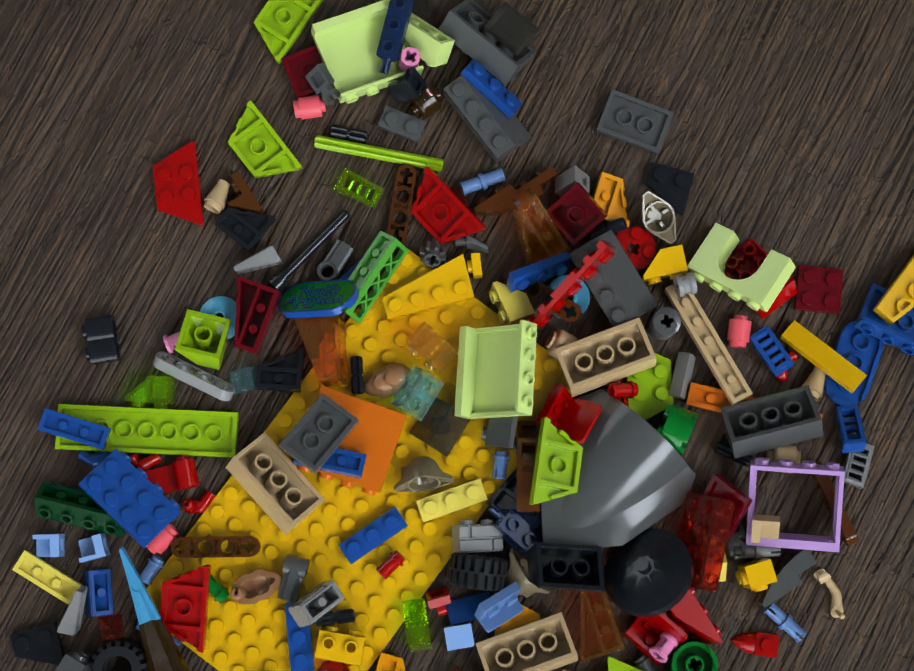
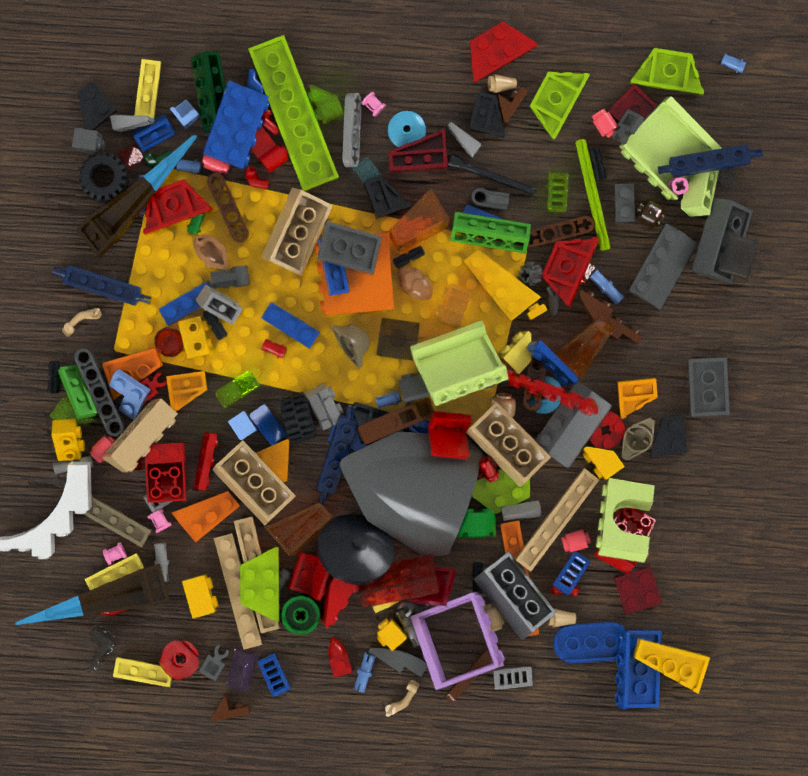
camera: 65 degrees right, 5 degrees up
(50, 545) = (173, 79): light blue panel -> none
(74, 429) = (269, 57): blue plate -> none
(102, 340) = (348, 45): black brick -> none
(127, 608) = (151, 161): none -> dark green arm
(203, 338) = (384, 124): lime slope -> none
(318, 298) = (454, 200): tile -> none
(409, 87) = (655, 195): black panel -> none
(417, 393) = (415, 310): clear light blue brick -> none
(439, 599) = (264, 397): red tile -> none
(451, 500) = (344, 373): light yellow plate -> none
(491, 88) = (684, 261): blue plate -> none
(499, 608) = (277, 446): medium blue bracket -> none
(518, 572) = (309, 455): dark tan hat -> none
(556, 464) = (405, 441): lime wing -> none
(566, 567) = (331, 483): black slope -> none
(570, 178) = (635, 359): light grey panel -> none
(576, 214) = (611, 372): dark red plate -> none
(615, 225) = (616, 408): black piece -> none
(660, 331) = (563, 480): dark grey piece -> none
(663, 647) = (303, 586): bright pink bush -> none
(684, 284) = (593, 482): light grey wheel -> none
(764, 527) = (429, 623): tan panel -> none
(823, 356) = (585, 615): yellow tile -> none
(850, 442) = (527, 666): blue slope -> none

